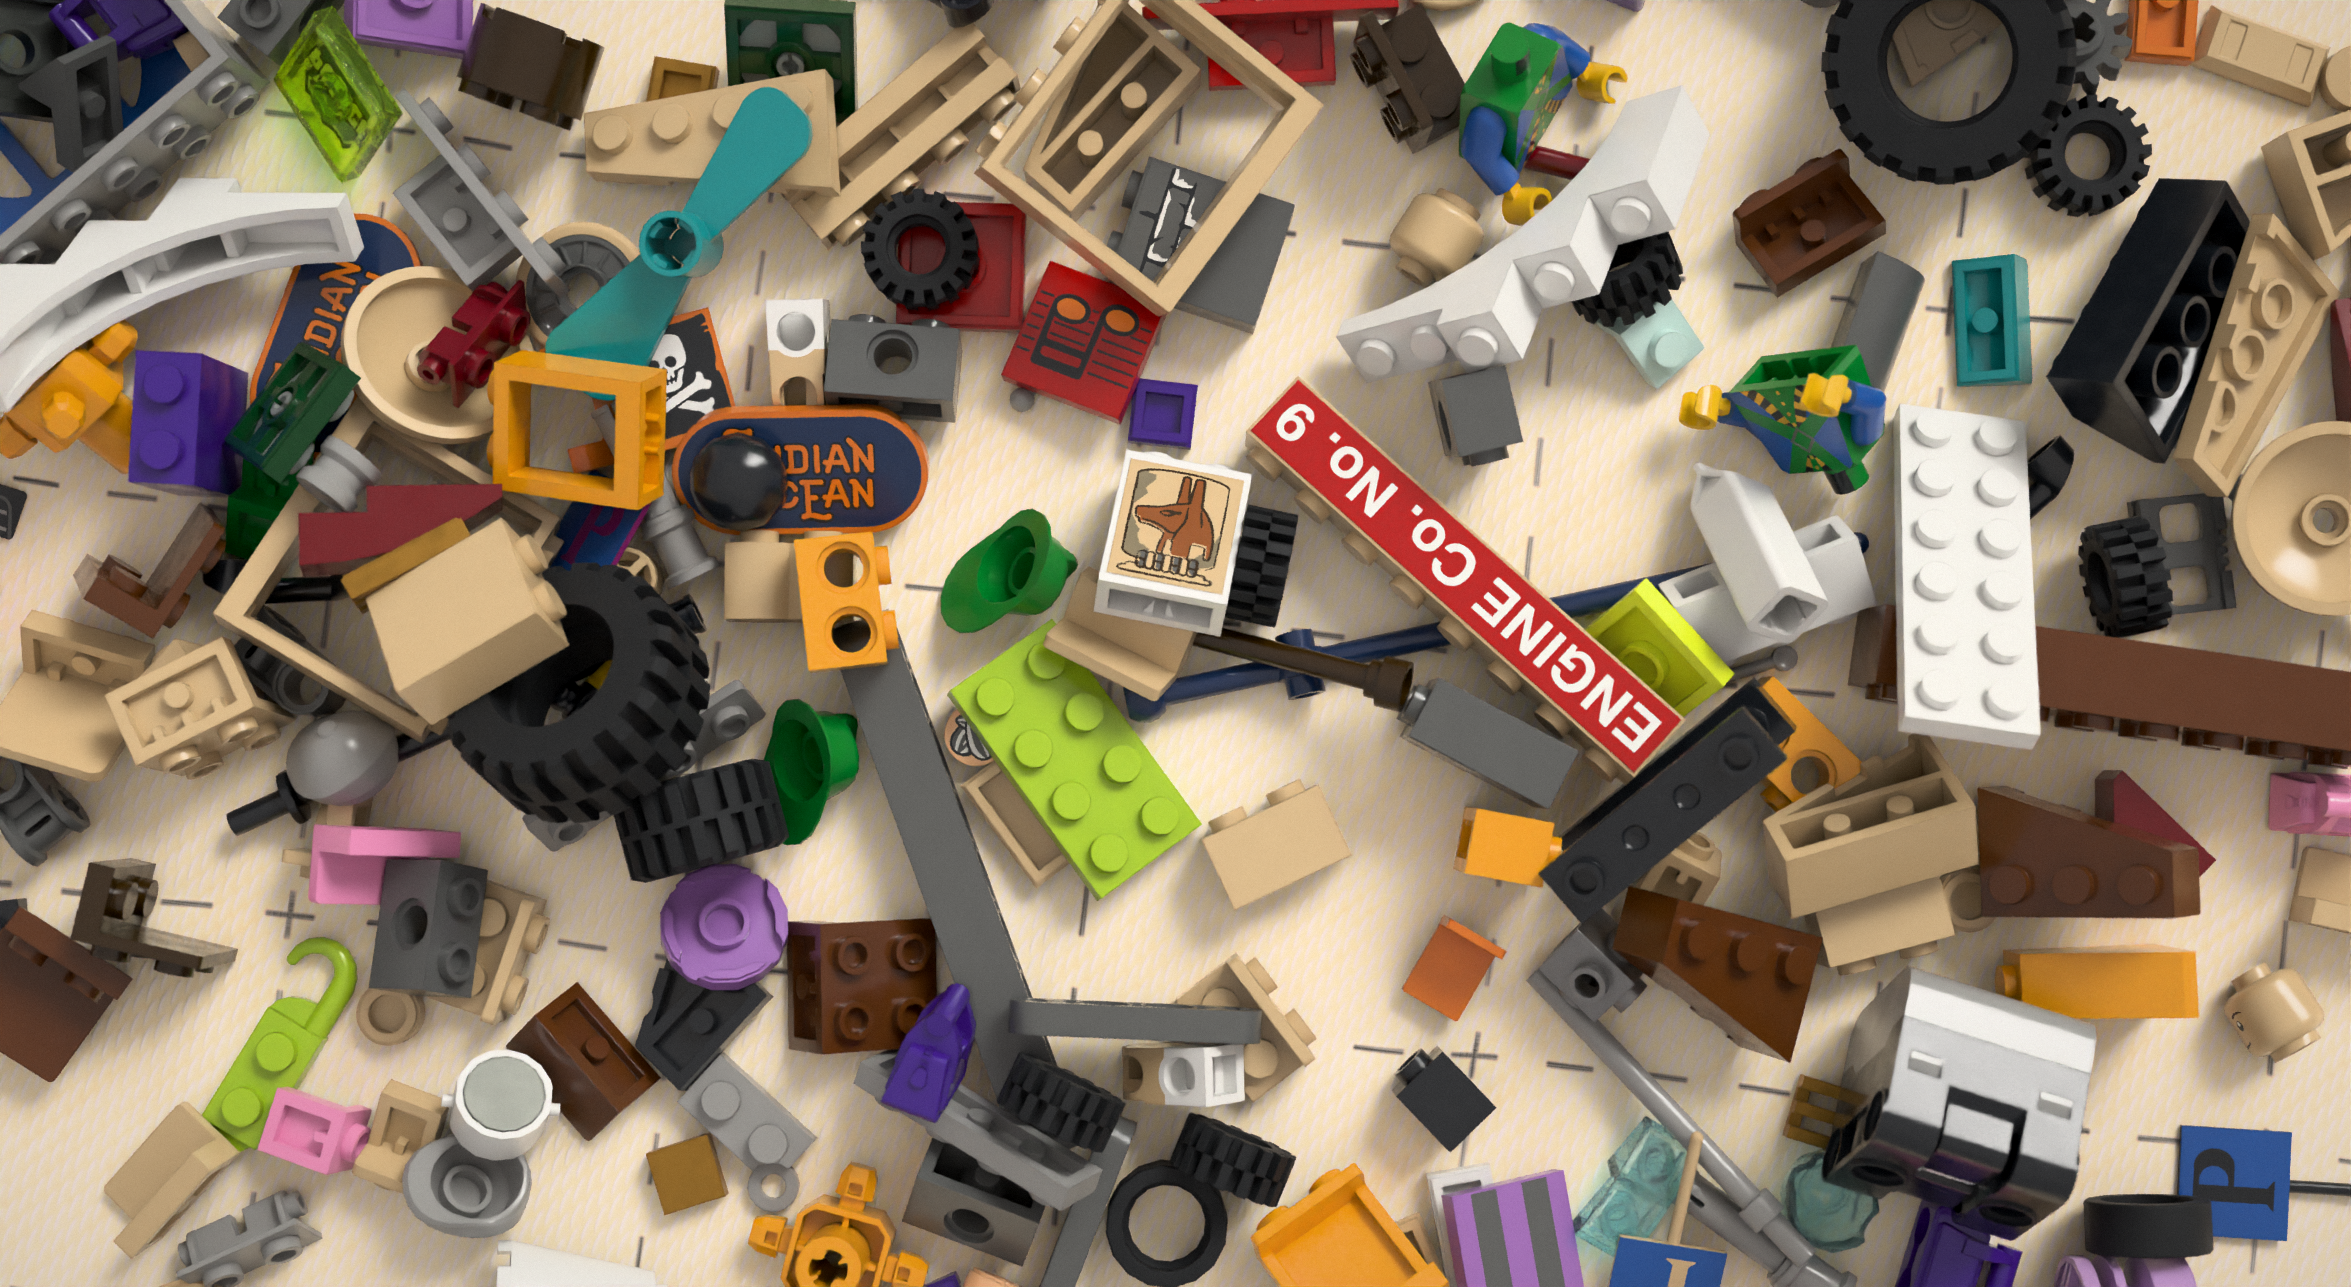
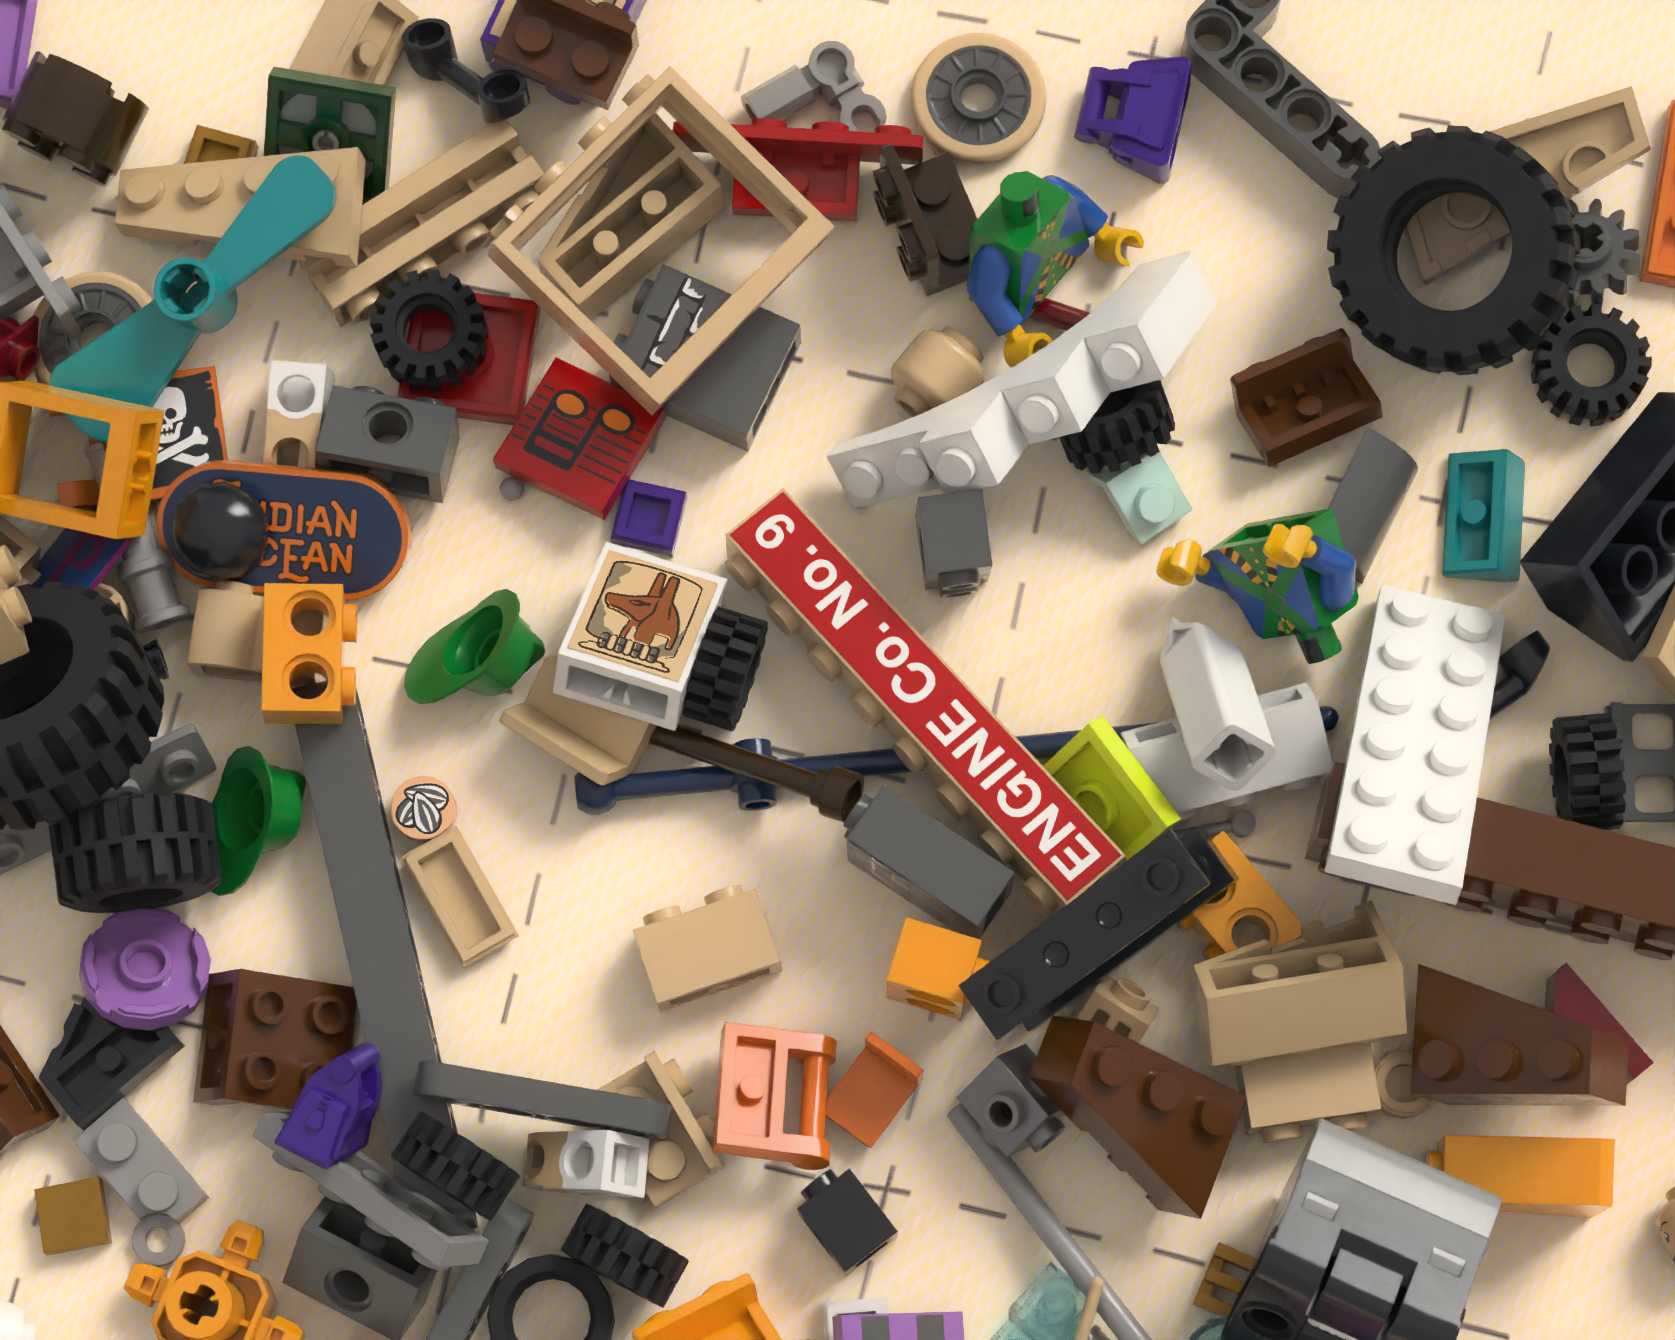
camera: 10 degrees right, 10 degrees down
(1074, 762) = (517, 845): lime plate -> none
(1339, 984) = (753, 1094): none -> plate

